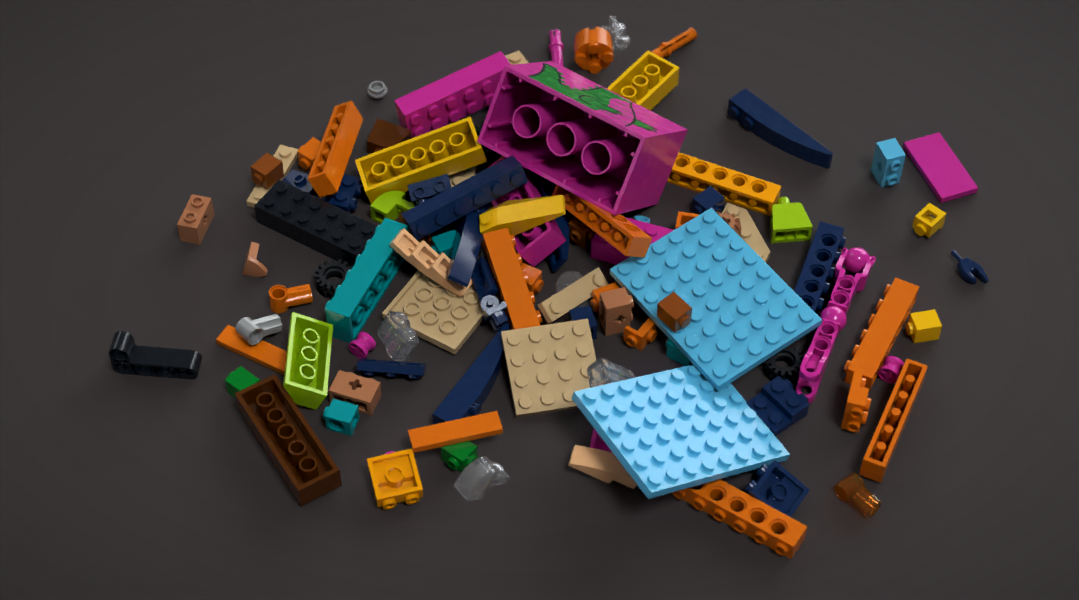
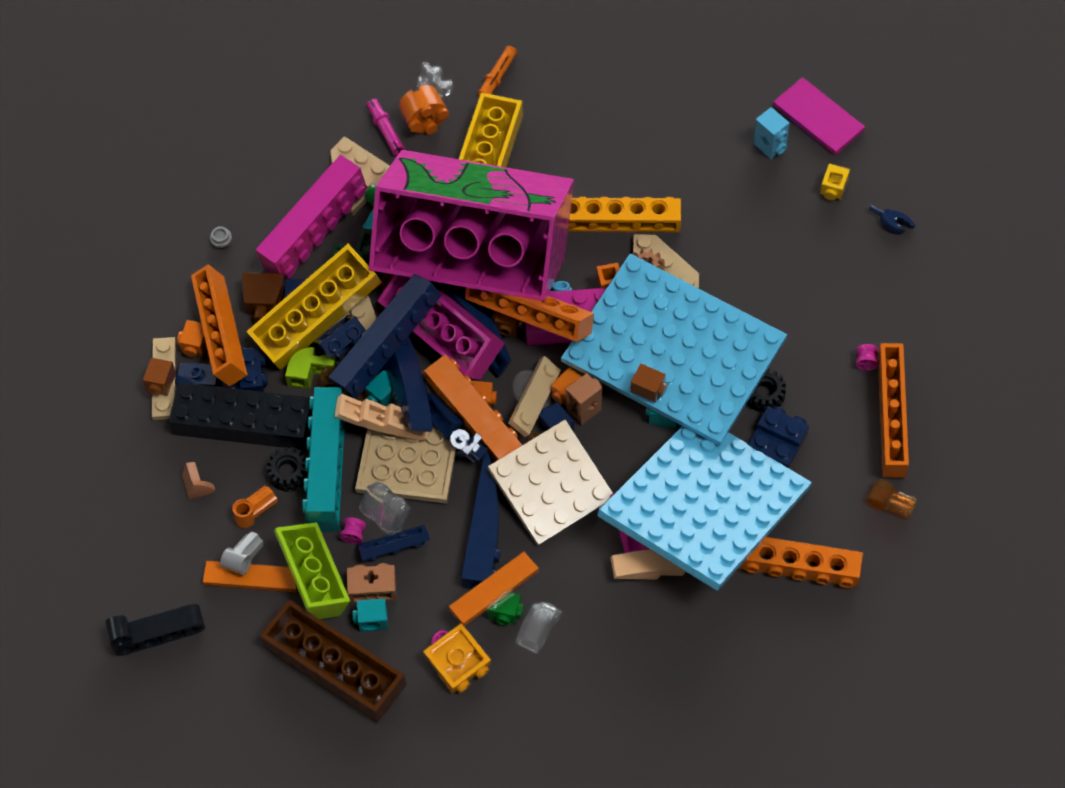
camera: 20 degrees left, 10 degrees up
(195, 219) = (112, 458): nougat brick -> none
(239, 380) = (255, 619): green brick -> none
(522, 214) = (449, 333): yellow wedge -> none
(606, 372) = (612, 472): clear brick -> none
(642, 337) = (617, 418): orange bracket -> none
(708, 199) = (616, 244): dark blue brick -> none
(776, 129) = (644, 133): dark blue slope -> none
(777, 488) = (817, 524): dark blue plate -> none
(789, 222) = (703, 233): lime torso -> none
(819, 265) = (745, 236): dark blue brick -> none
(834, 316) = (797, 380): dark pink piece -> none
(857, 403) = (852, 406): orange plate -> none
(883, 331) = (842, 324): orange brick -> none
(924, 326) = (877, 299): yellow brick -> none

